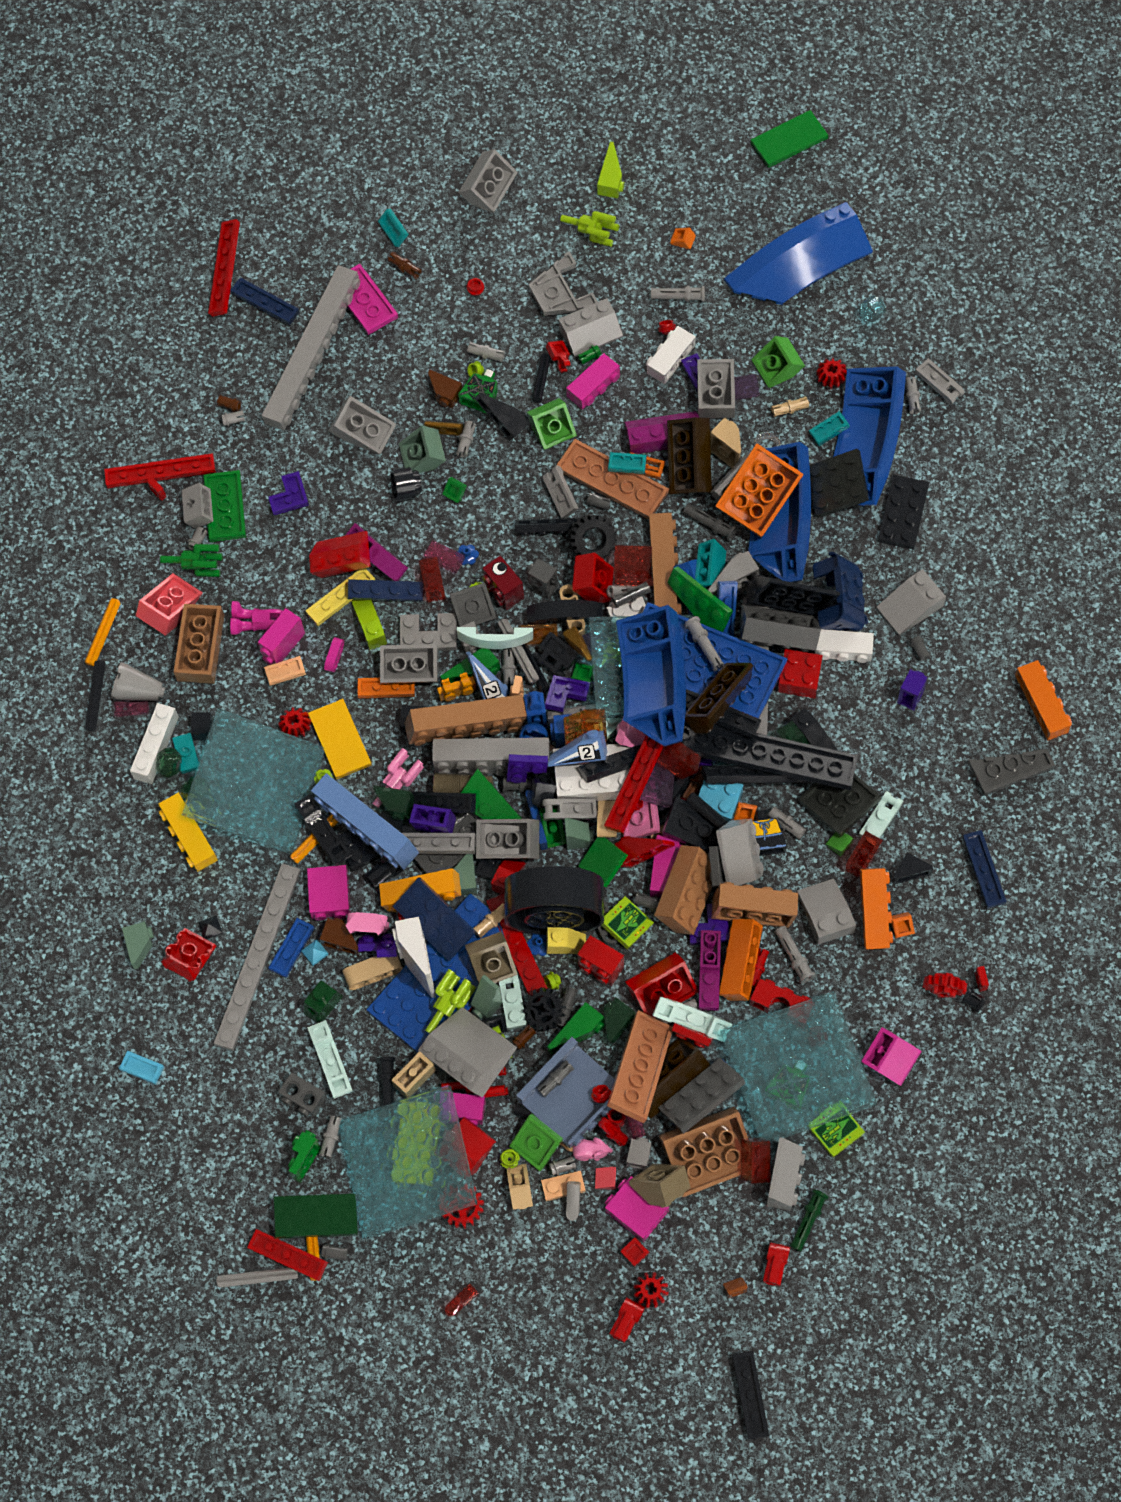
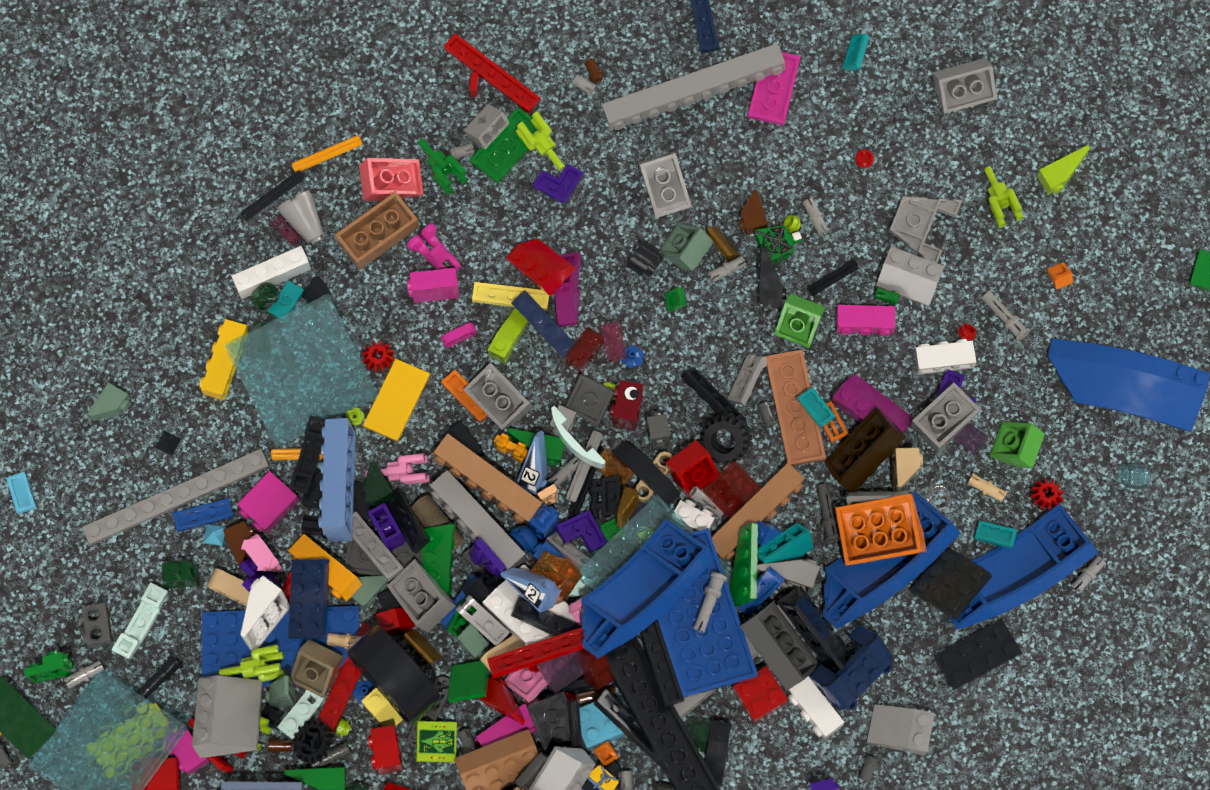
camera: 45 degrees right, 5 degrees up
(187, 954) = (133, 446): red slope -> none
(245, 477) = (540, 139): none -> lime plant
(285, 670) = (414, 311): light nougat plate -> none
(404, 265) = (832, 89): reddish brown pin -> none
(413, 1075) = (177, 691): tan brick -> none
(444, 638) = (525, 381): light grey plate -> none
(559, 352) = (866, 272): red plate -> none
(631, 594) = (704, 509): dark grey pin -> none
(718, 696) = (667, 651): dark brown slope -> none
(939, 381) = (1121, 584): light grey plate -> none

